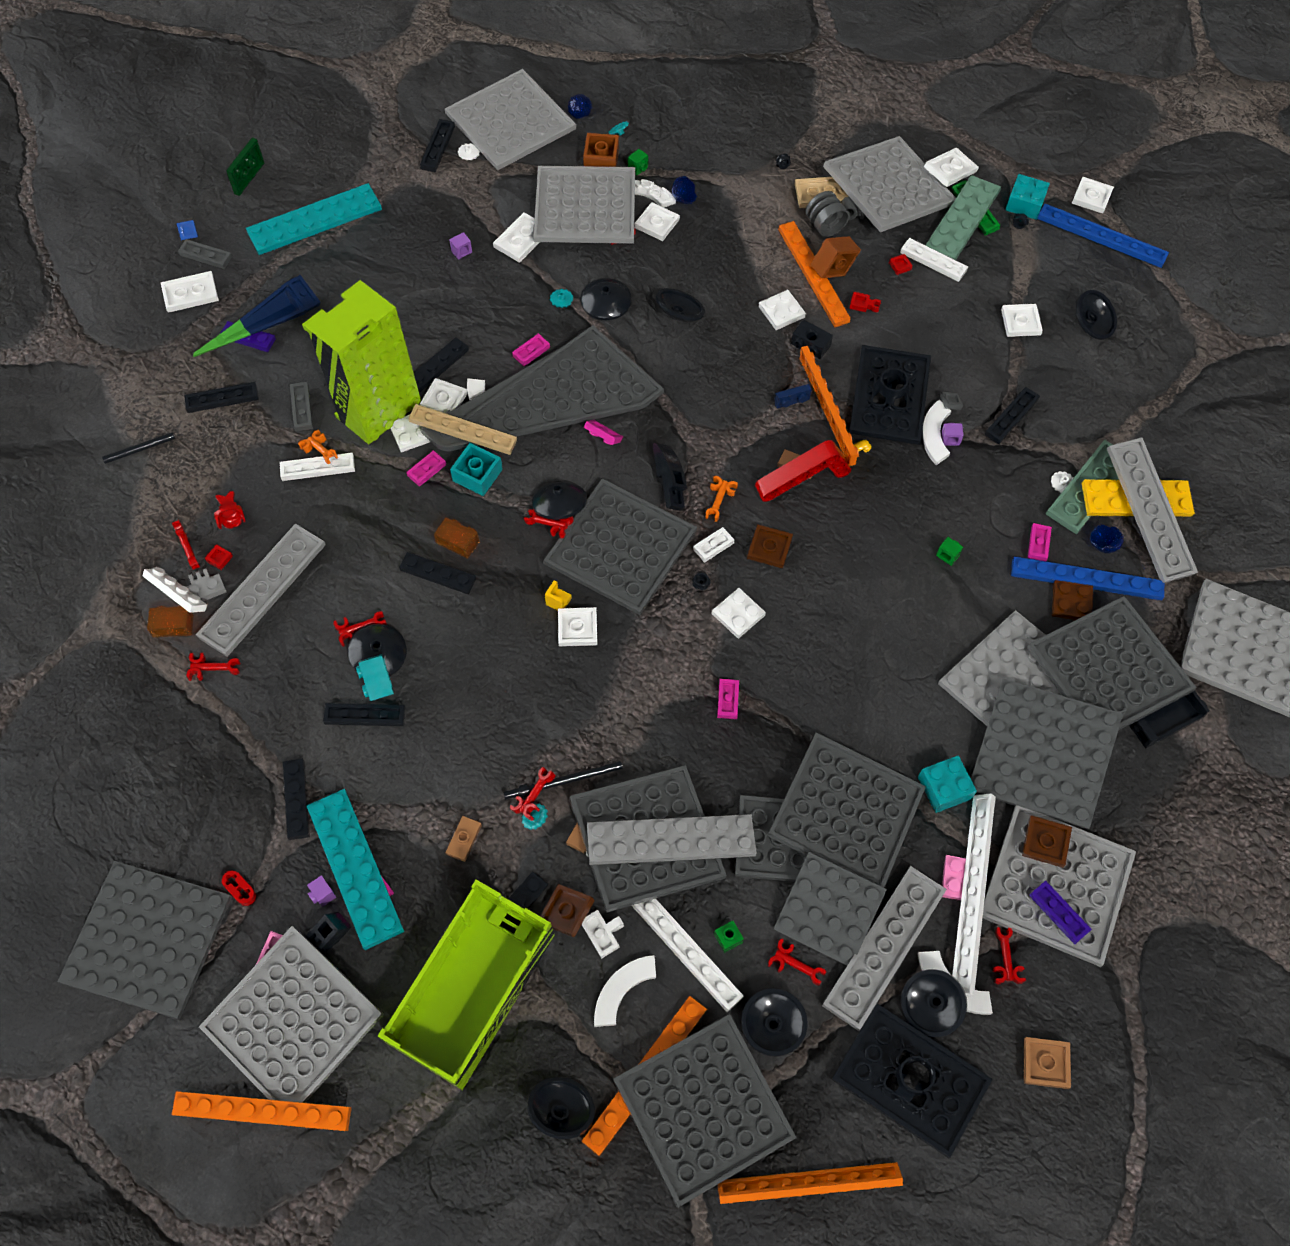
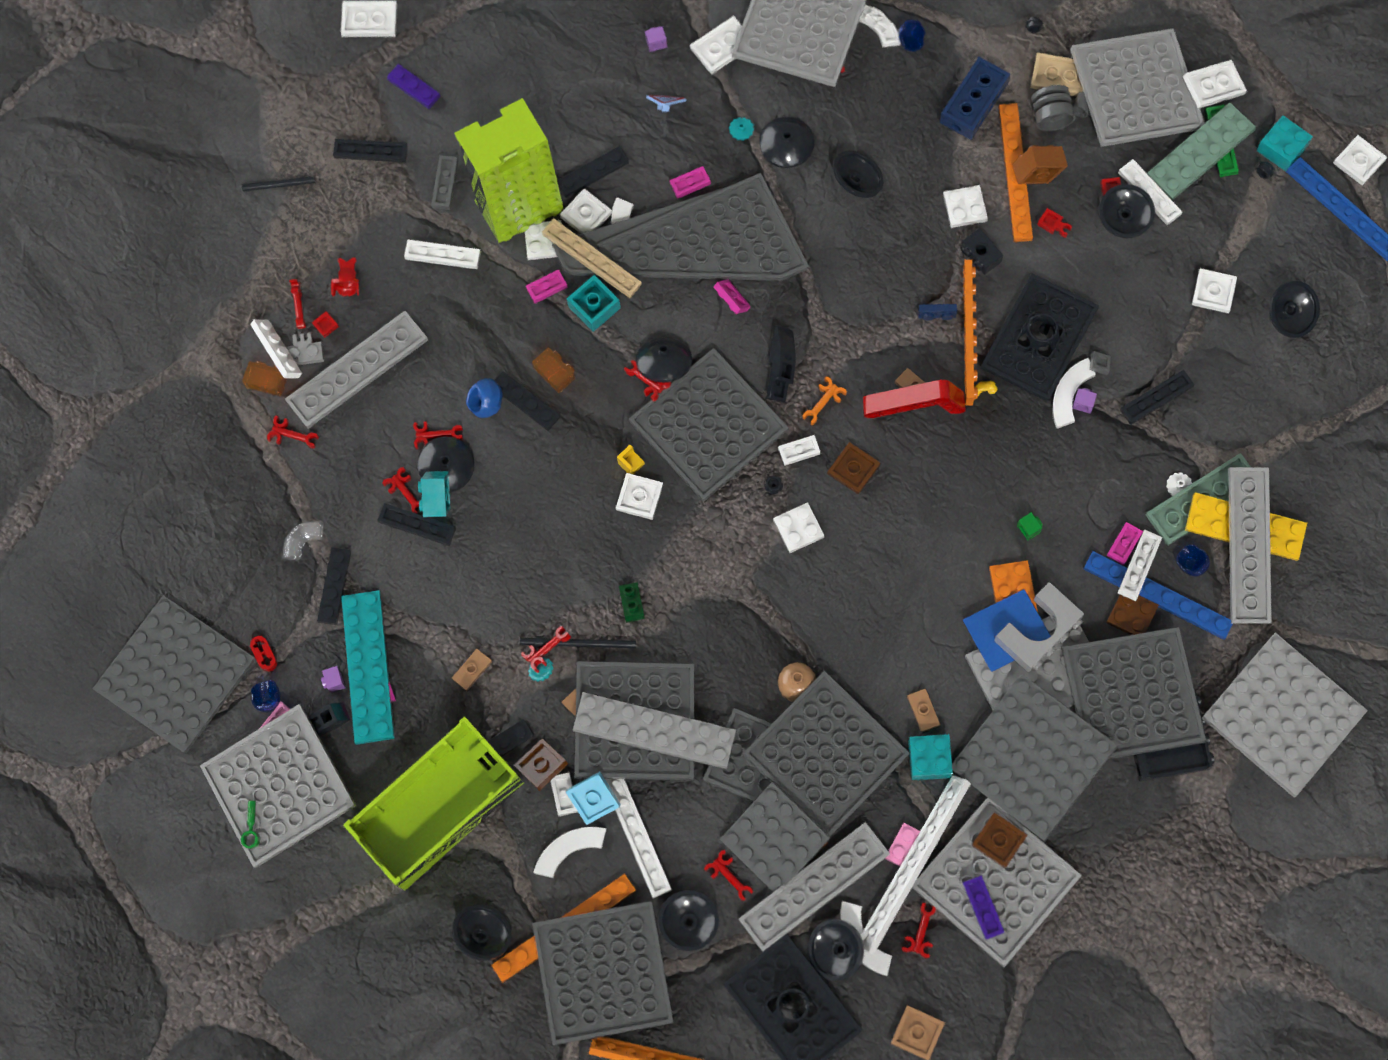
camera: 25 degrees right, 10 degrees up
(245, 760) = (299, 536): none -> clear cylinder
(252, 930) = (265, 696): none -> clear blue hair
(261, 1111) = (234, 853): orange plate -> none
(271, 1068) = (251, 821): none -> green piece
(285, 304) = (458, 62): dark blue plate -> none
(315, 441) = (446, 225): orange bar -> none
(335, 680) = (398, 482): none -> red bar
(398, 578) = (484, 398): none -> blue piece
(485, 294) = (665, 101): none -> light blue piece
(604, 726) = (631, 602): none -> dark green plate
(632, 926) = (593, 798): none -> medium azure plate
(657, 221) = (870, 64): white plate -> none
(725, 942) = (677, 839): green plate -> none
(728, 699) = (756, 611): dark pink plate -> none
(762, 206) = (975, 98): none -> dark blue brick
(789, 752) = (795, 680): none -> medium nougat cylinder
(921, 743) = (923, 710): none -> medium nougat plate
(927, 271) = (1131, 201): none -> black dish
(958, 612) = (1010, 579): none -> orange plate
(969, 646) = (990, 621): none -> blue piece
(1017, 617) = (1030, 652): none -> light grey arch
(1063, 555) = (1139, 565): none -> white plate

